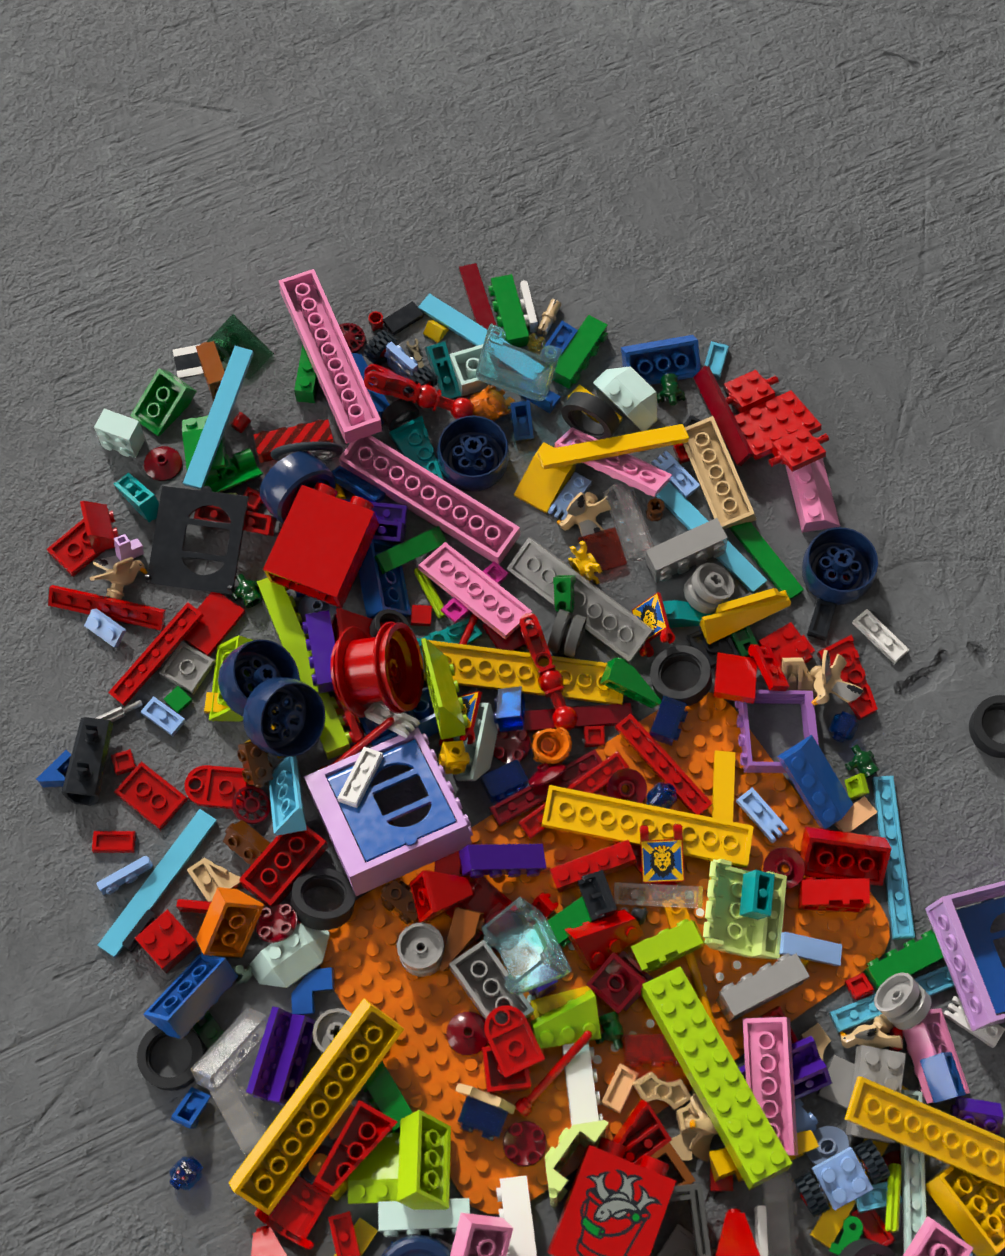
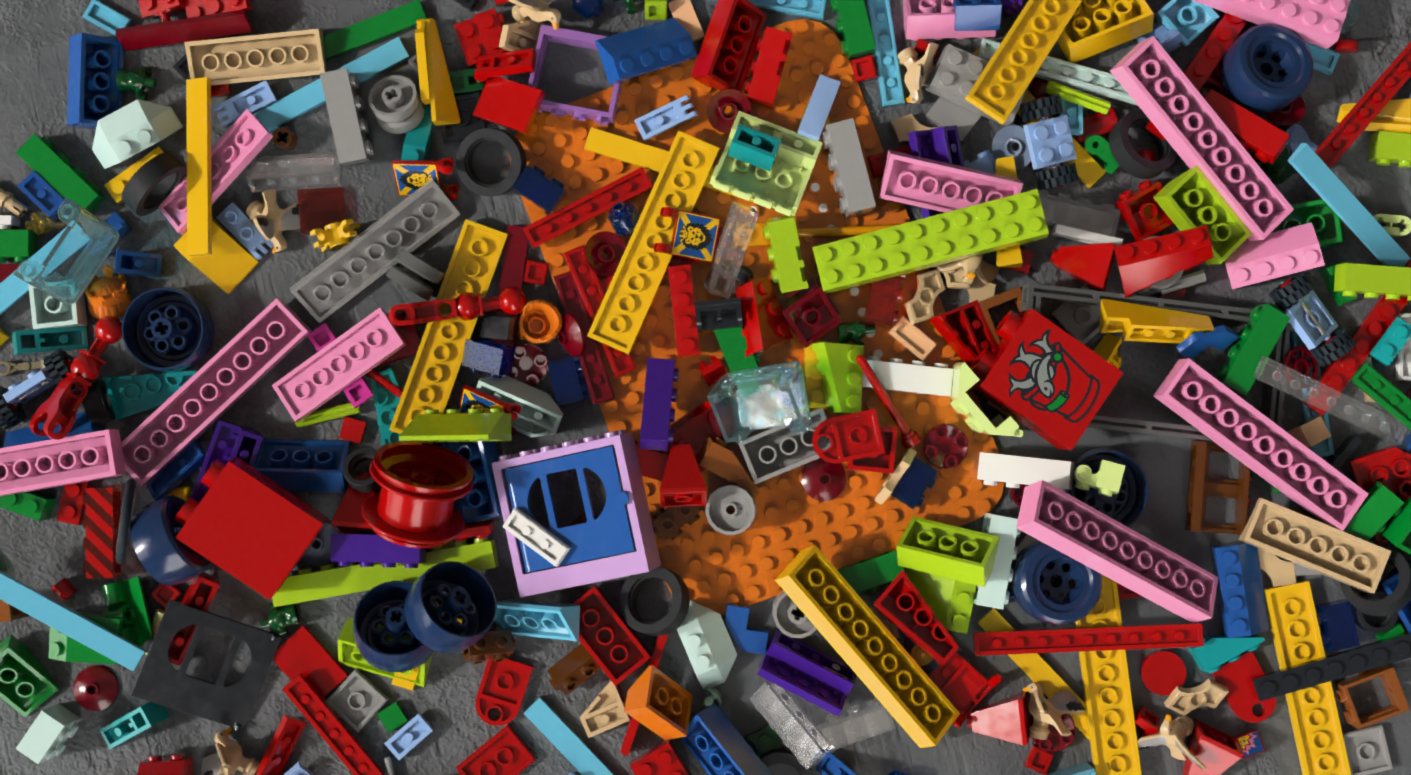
camera: 75 degrees left, 20 degrees up
(126, 548) = (199, 746): lavender piece -> none
(251, 805) = (532, 657): dark red wheel -> none
(276, 923) = (671, 654): dark red dish -> none
(311, 413) = (71, 504): none -> red plate
(366, 740) = (498, 534): red piece -> none
(403, 722) = (482, 485): white hinge -> none
(410, 550) = (274, 426): green tile -> none
(453, 757) = (533, 431): yellow brick -> none
(537, 709) = (494, 327): none -> black tile
(564, 592) = (366, 266): green leg -> none
(627, 681) = (486, 221): green slope -> none
(902, 1001) = (895, 30): light grey wheel -> none

